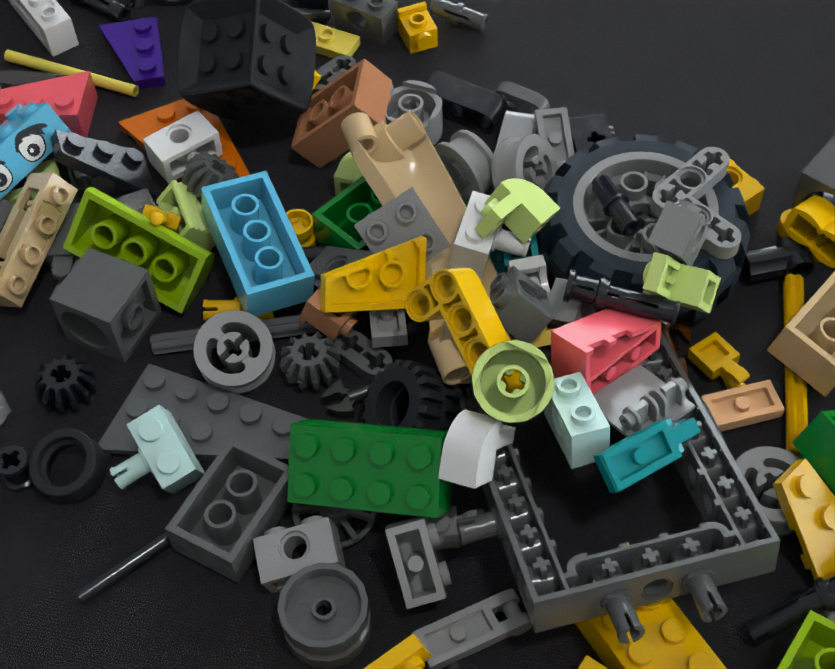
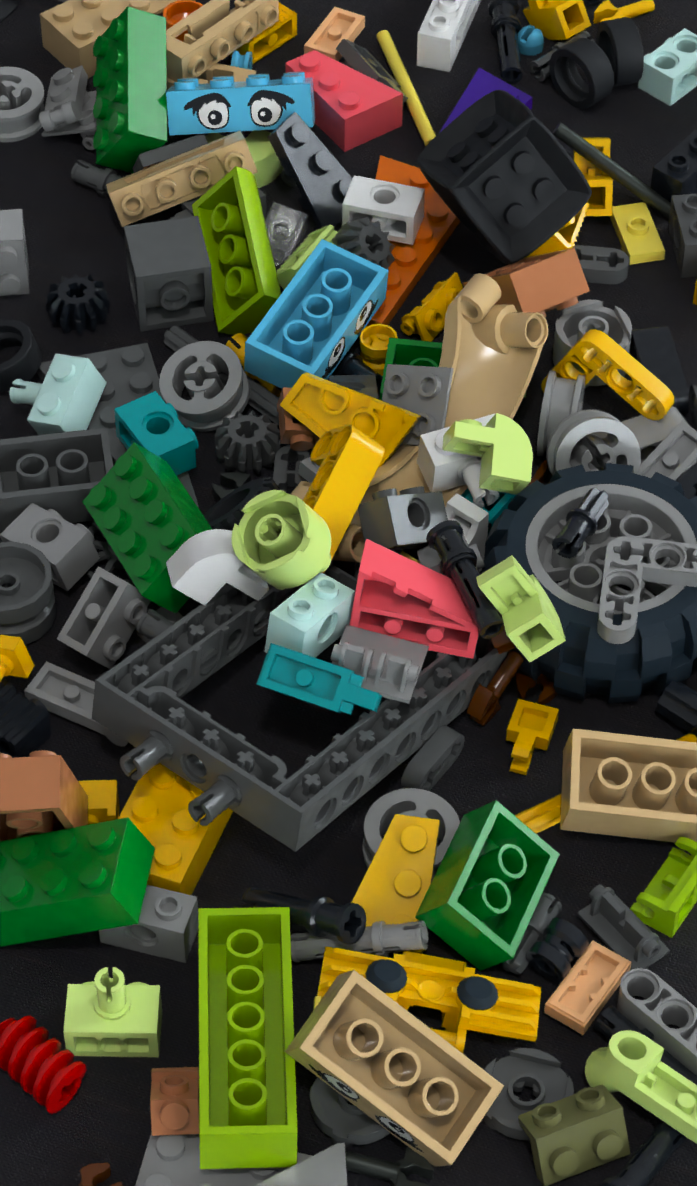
camera: 50 degrees right, 5 degrees down
(158, 216) = (280, 237): yellow bar -> none
(244, 421) = (158, 430): none -> teal brick
(287, 169) = (430, 317): none -> yellow hinge
(455, 110) = (592, 355): none -> yellow beam
(680, 232) = (564, 569): light grey brick -> none
(744, 405) = (492, 774): light nougat plate -> none

